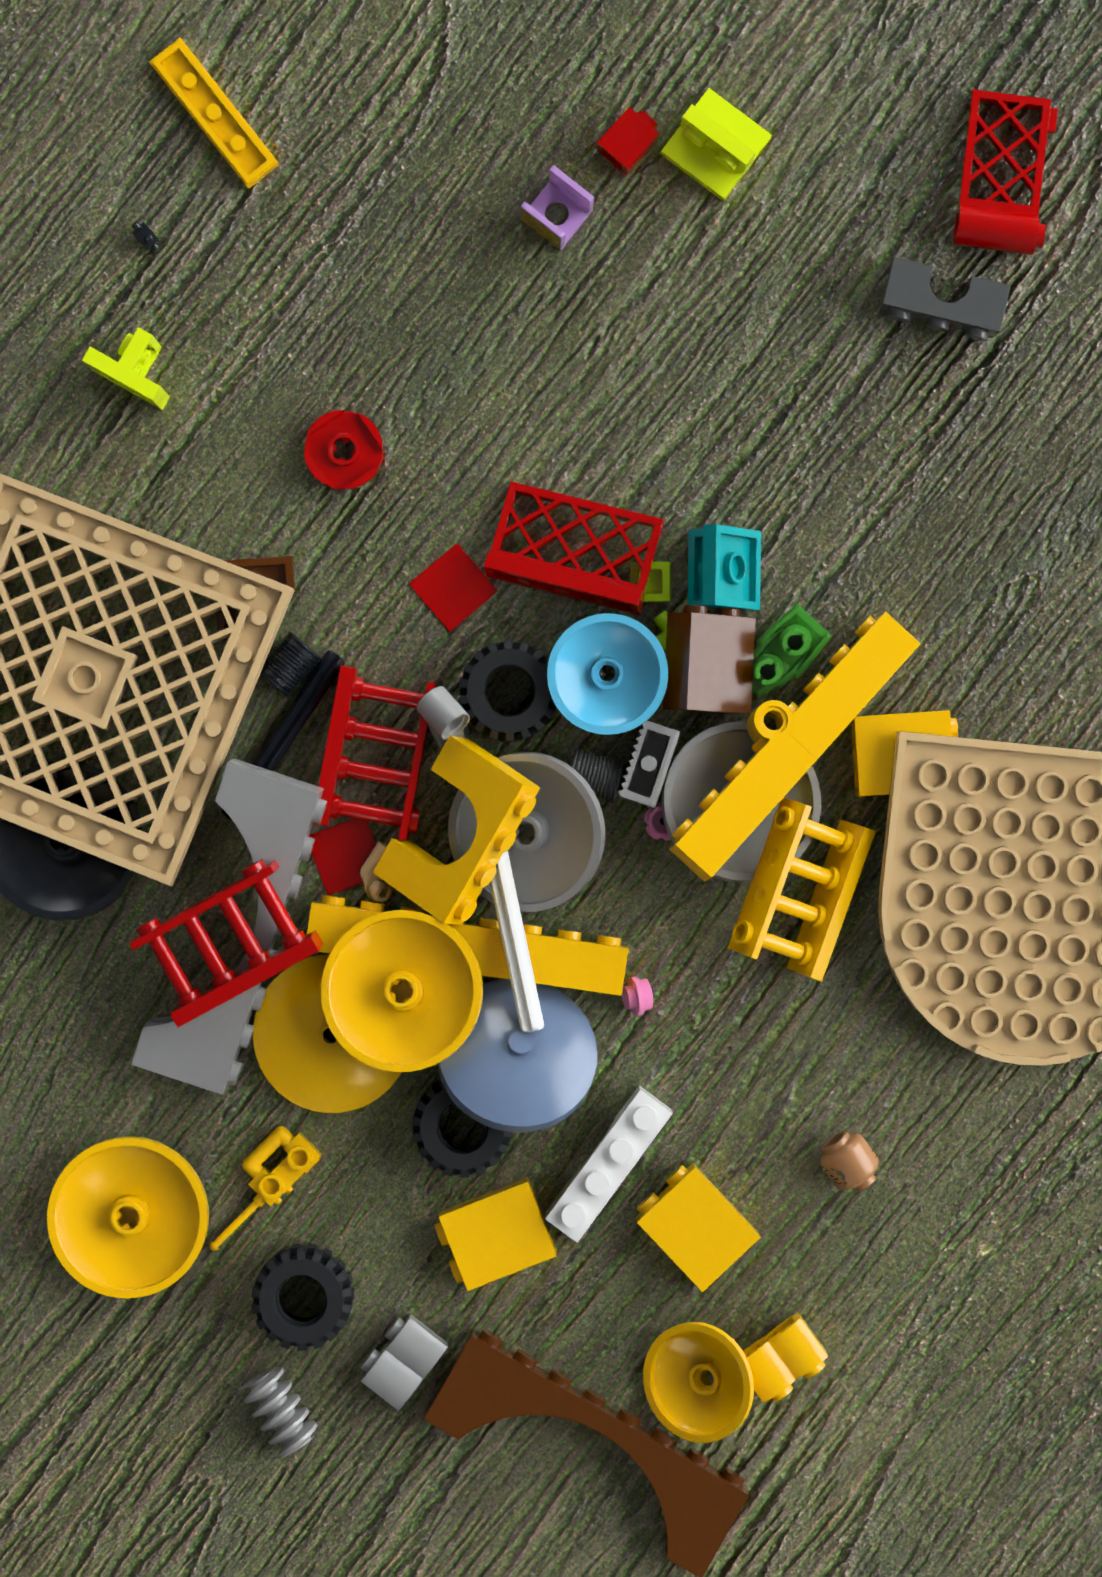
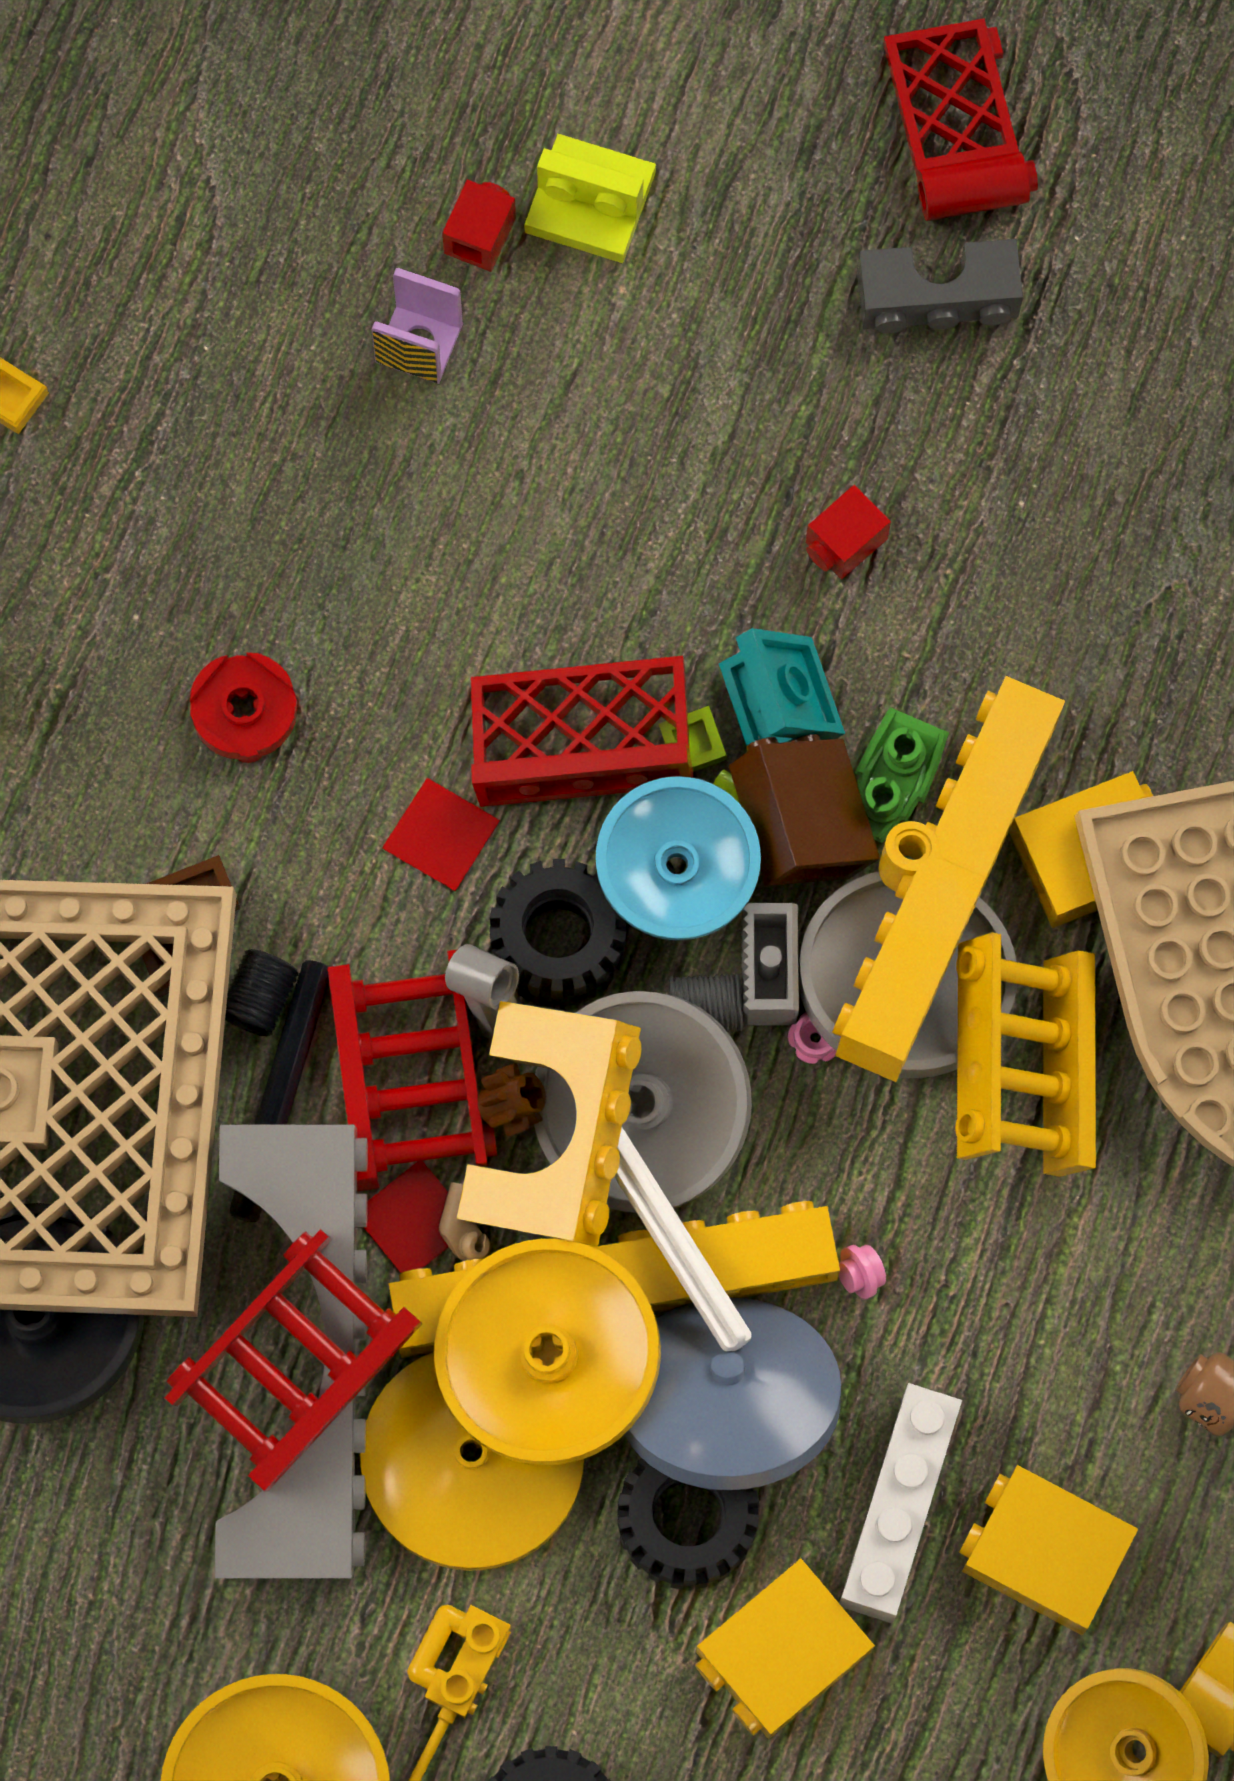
camera: 25 degrees left, 15 degrees down
(437, 803) = (511, 1099): none -> reddish brown gear
(811, 464) = (846, 533): none -> red brick

